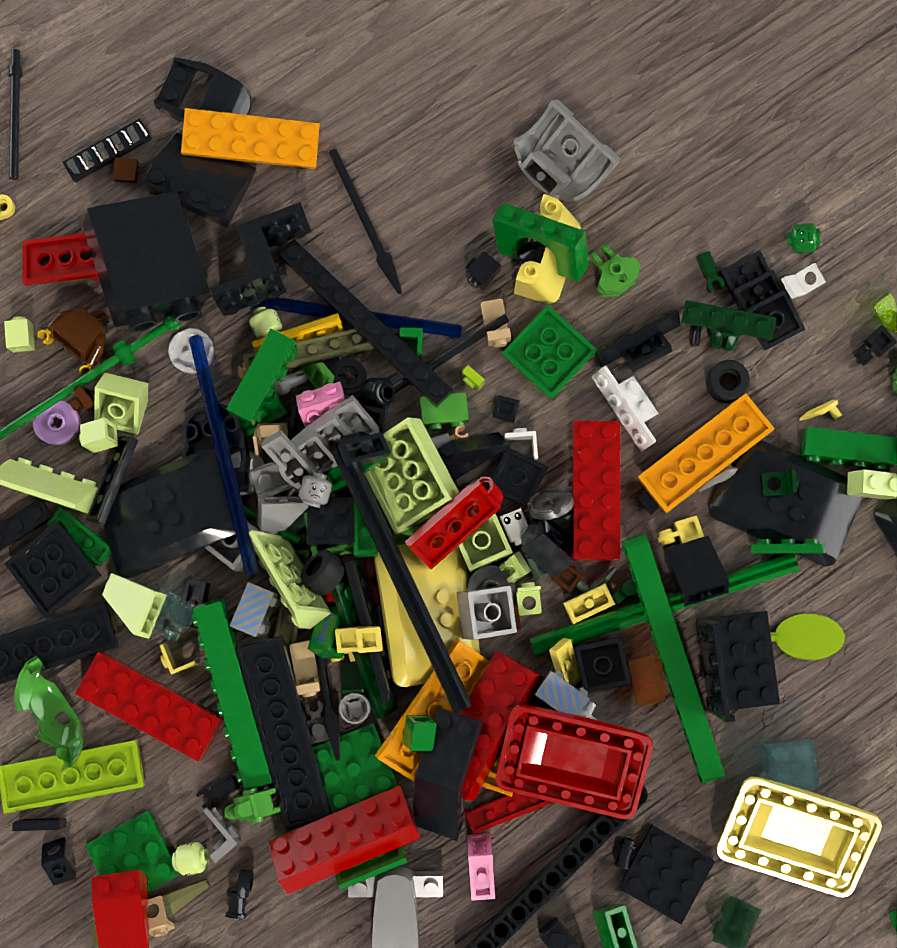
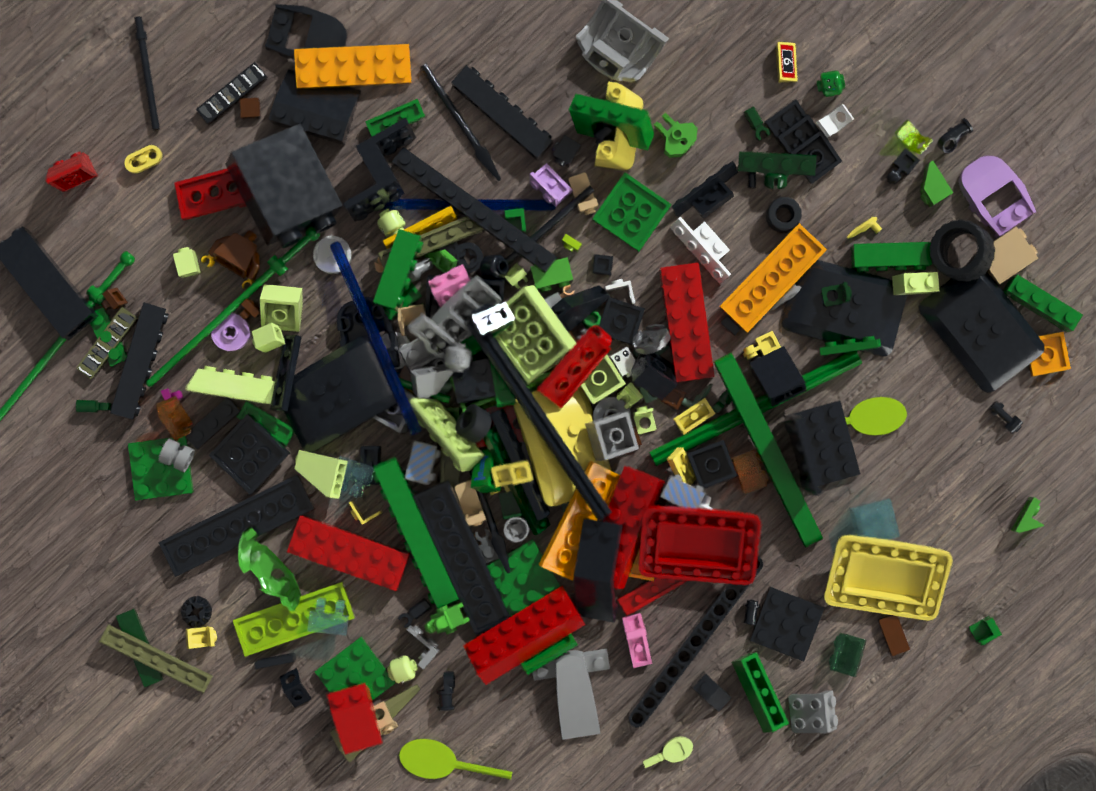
camera: 10 degrees left, 5 degrees up
(109, 787) = (328, 622): none -> clear light blue plate
(310, 199) = (410, 110): none -> green plate
(400, 405) = (515, 274): none -> yellowish green tile
(415, 216) = (501, 112): none -> black brick
(419, 733) = (572, 541): green panel -> none
(458, 306) = (550, 184): none -> lavender bracket
(485, 469) = (592, 320): none -> green tile
(754, 207) = (786, 62): none -> slope
(795, 908) = (893, 634): none -> reddish brown tile

